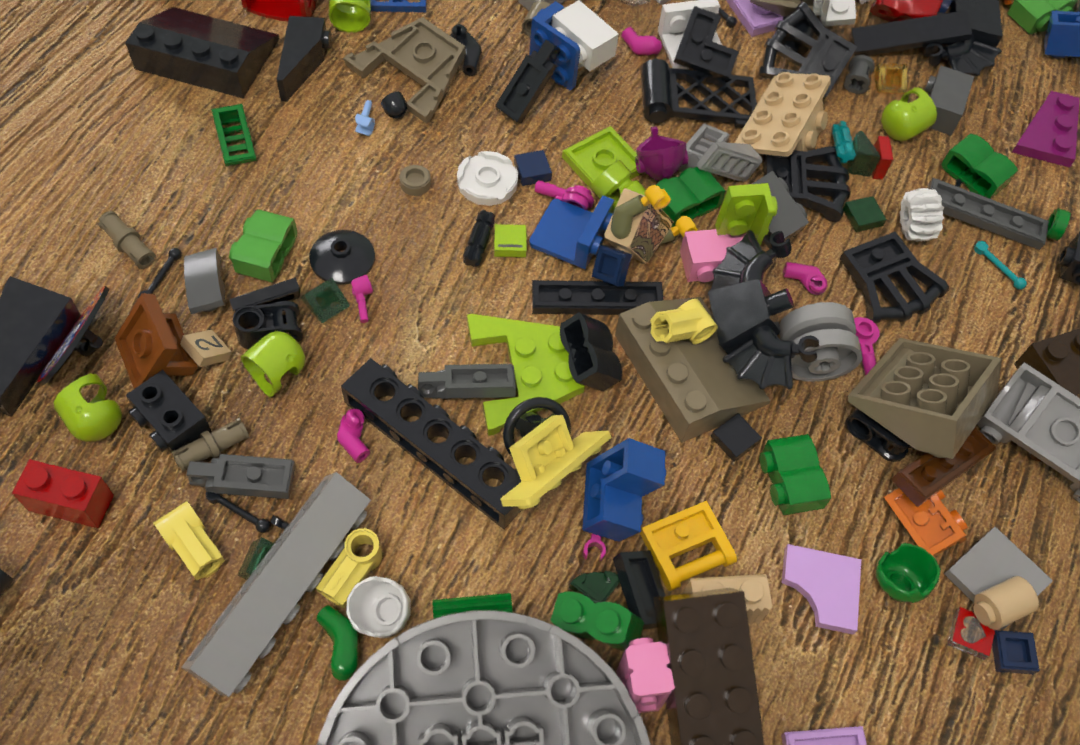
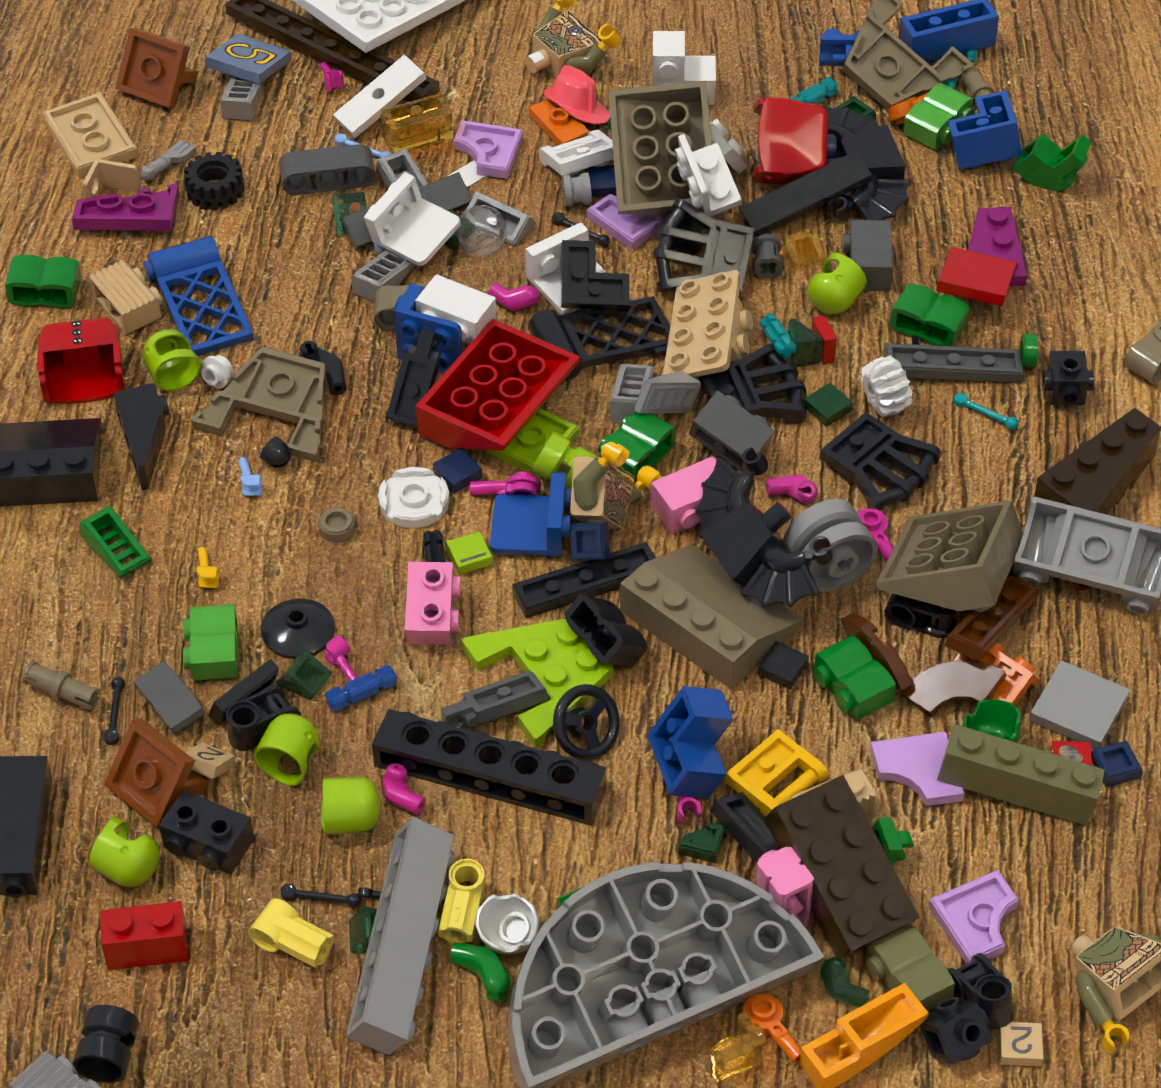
camera: 15 degrees left, 10 degrees down
(73, 338) = (69, 794): black shield -> none
(210, 444) = (262, 846): dark tan pin -> none
(244, 476) = (312, 862): dark grey hinge -> none
(292, 186) = (207, 574): none -> yellow hand
(296, 434) = (349, 805): none -> lime helmet
(365, 328) = (360, 688): none -> blue axle
(381, 26) = (217, 371): none -> white plate
(454, 274) = (430, 603): none -> bright pink brick
(547, 457) = (610, 738): light yellow bracket -> none
(587, 109) = (492, 389): none -> red slope
(596, 621) = (730, 852): green brick -> none
(660, 156) = (592, 413): magenta helmet -> none
(687, 322) = (691, 567): light yellow piece -> none
(747, 209) = (708, 437): lime bracket -> none
(767, 658) = (892, 840): none -> green tile
(832, 467) = (885, 655): none -> reddish brown tile
(885, 513) = (953, 682): none -> tile
(921, 637) = (1021, 775): none -> olive brick
(1005, 603) = (1089, 719): tan brick -> none
(1033, 146) = (976, 276): none -> red tile

